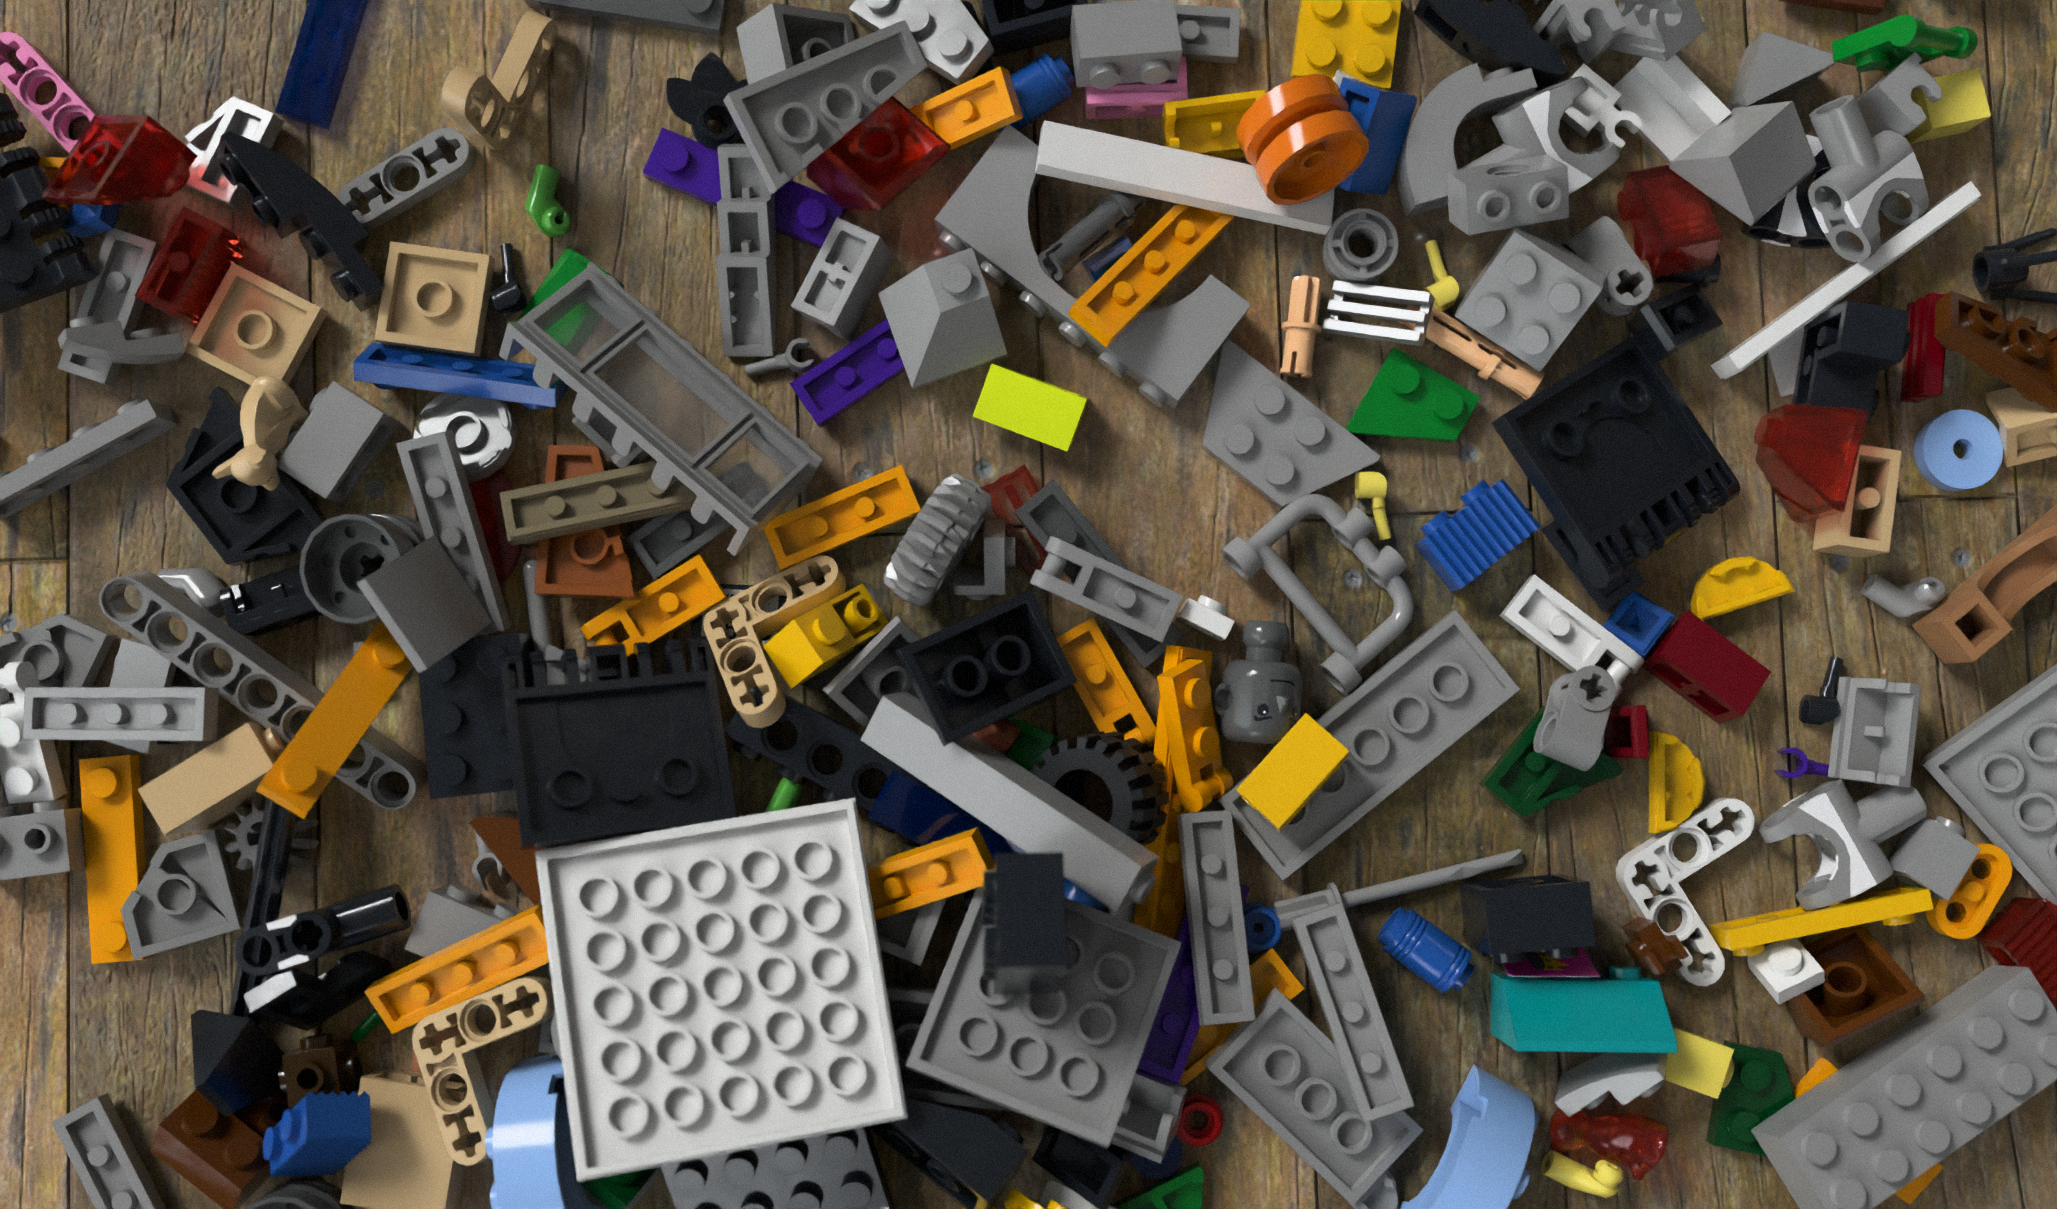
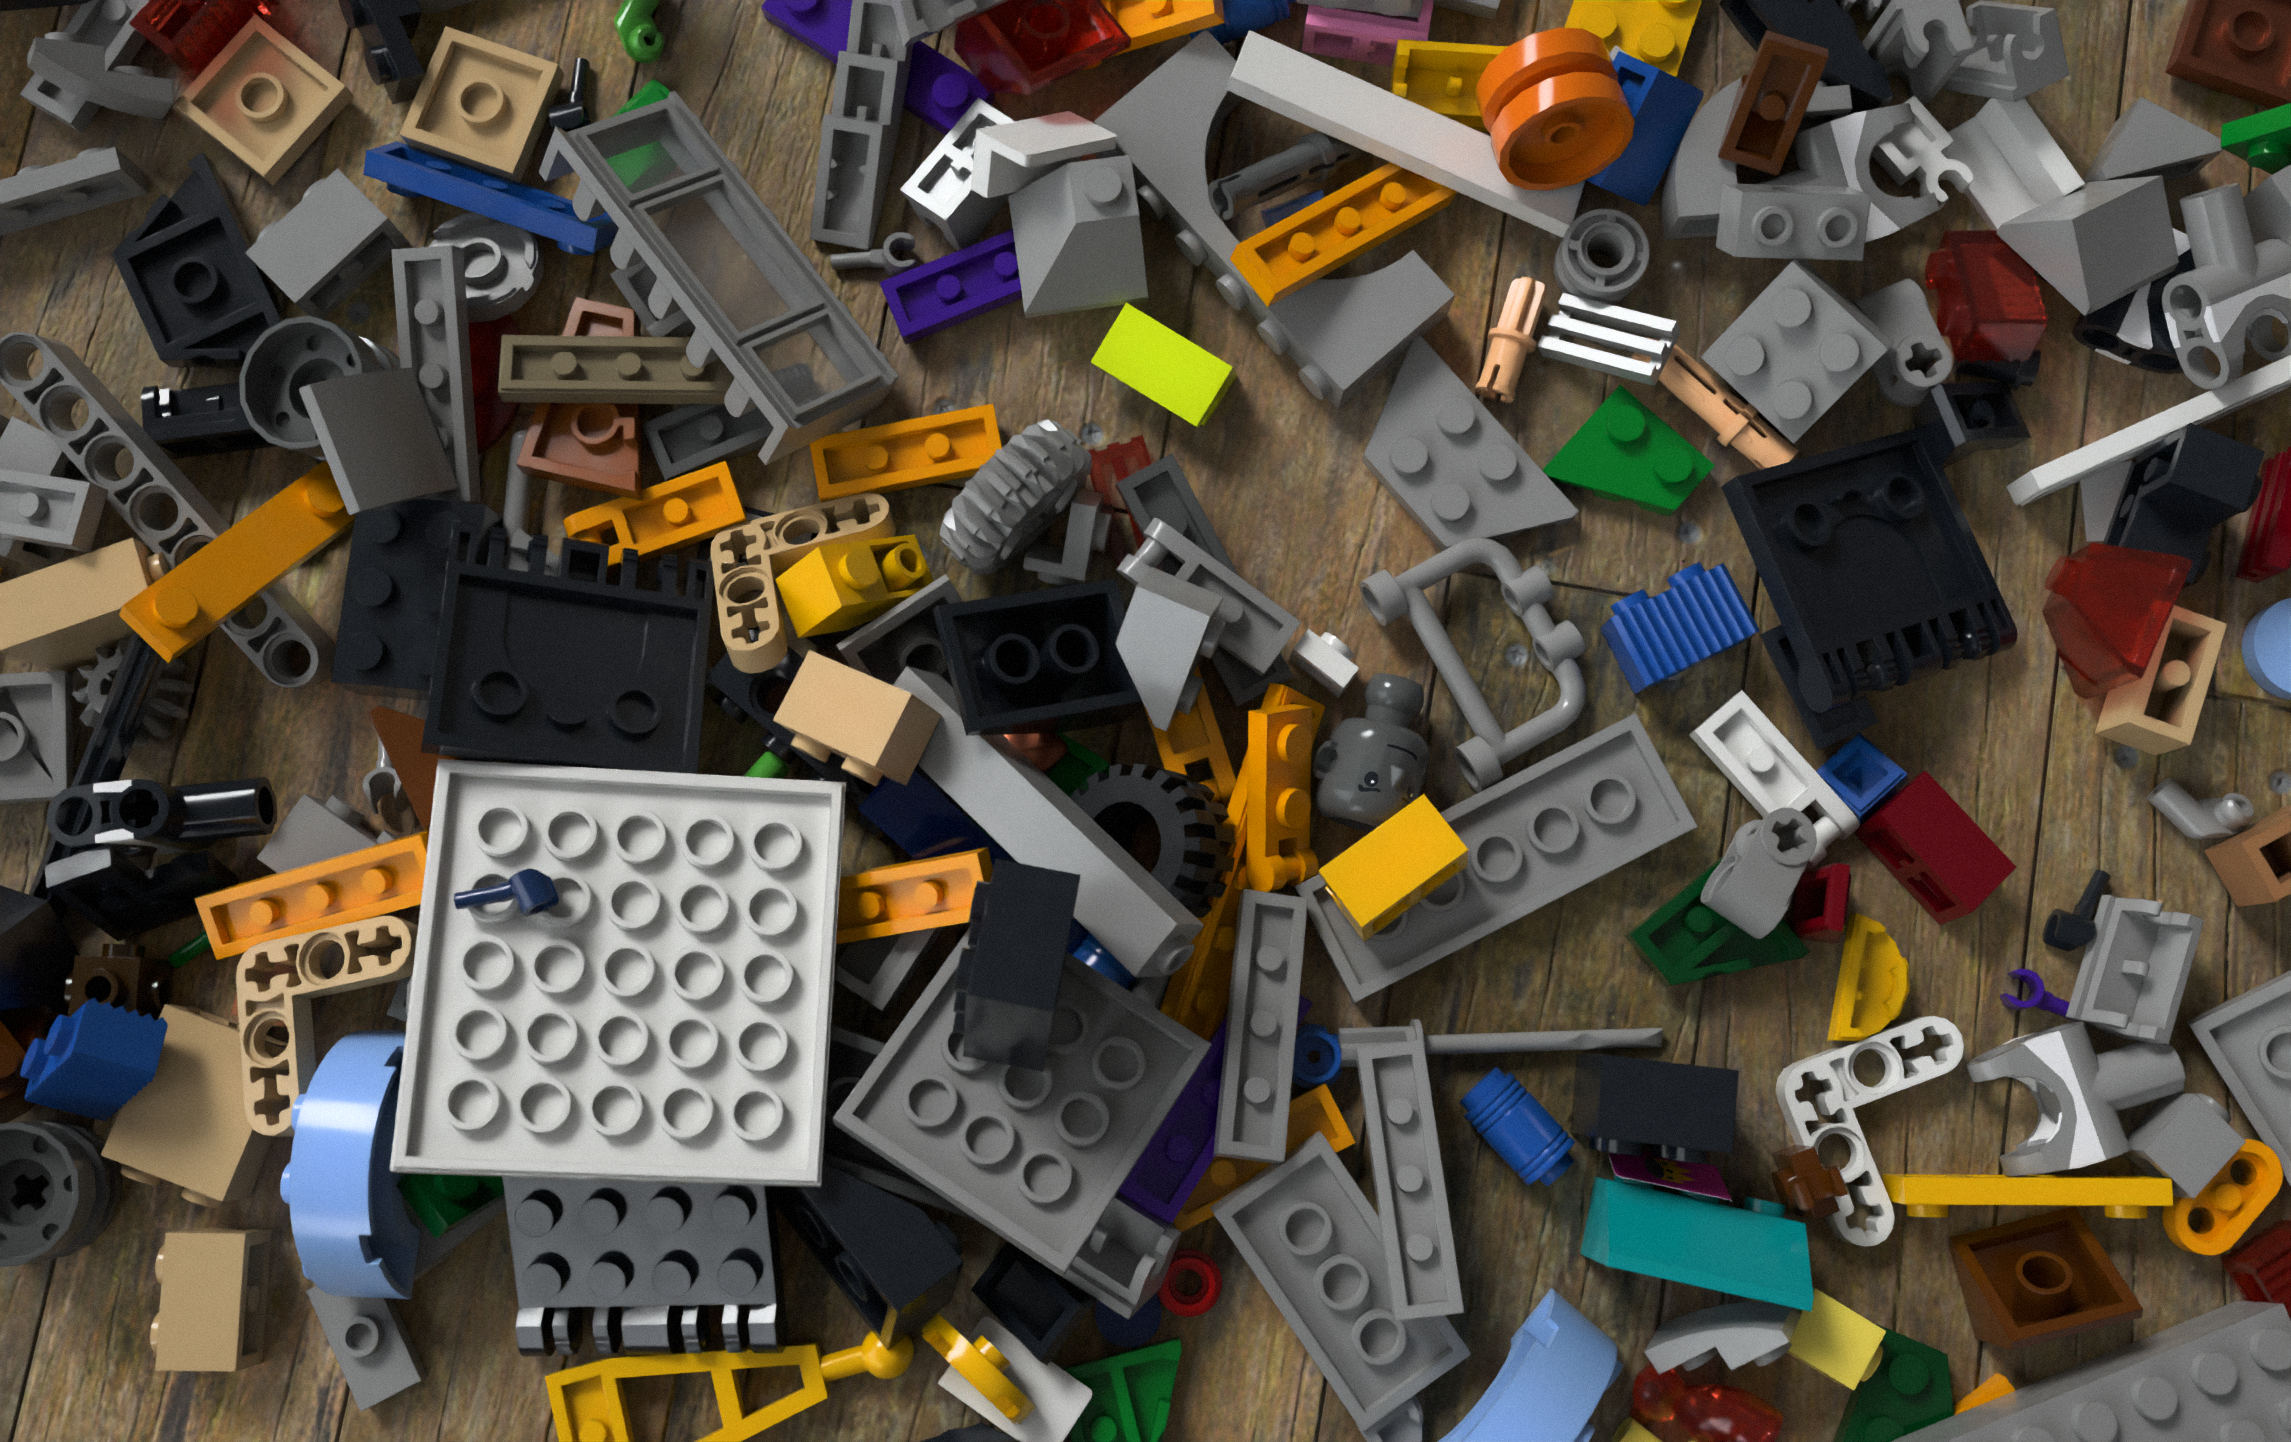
camera: 15 degrees right, 5 degrees down
(199, 585) = (121, 378): light grey arm -> none
(265, 422) = (245, 204): tan animal -> none
(634, 940) = (530, 888): none -> dark blue hand
(854, 749) = (856, 718): none -> tan brick
(893, 254) = (1028, 149): none -> white panel
(1080, 632) = (1164, 639): none -> light grey slope
(1374, 486) = (1561, 545): light yellow hand -> none
(1446, 287) = (1697, 326): light yellow hand -> none
(1474, 100) = (1772, 102): none -> reddish brown slope
(1736, 585) = (1993, 755): yellow plate -> none
(1786, 969) = (1971, 1246): white plate -> none

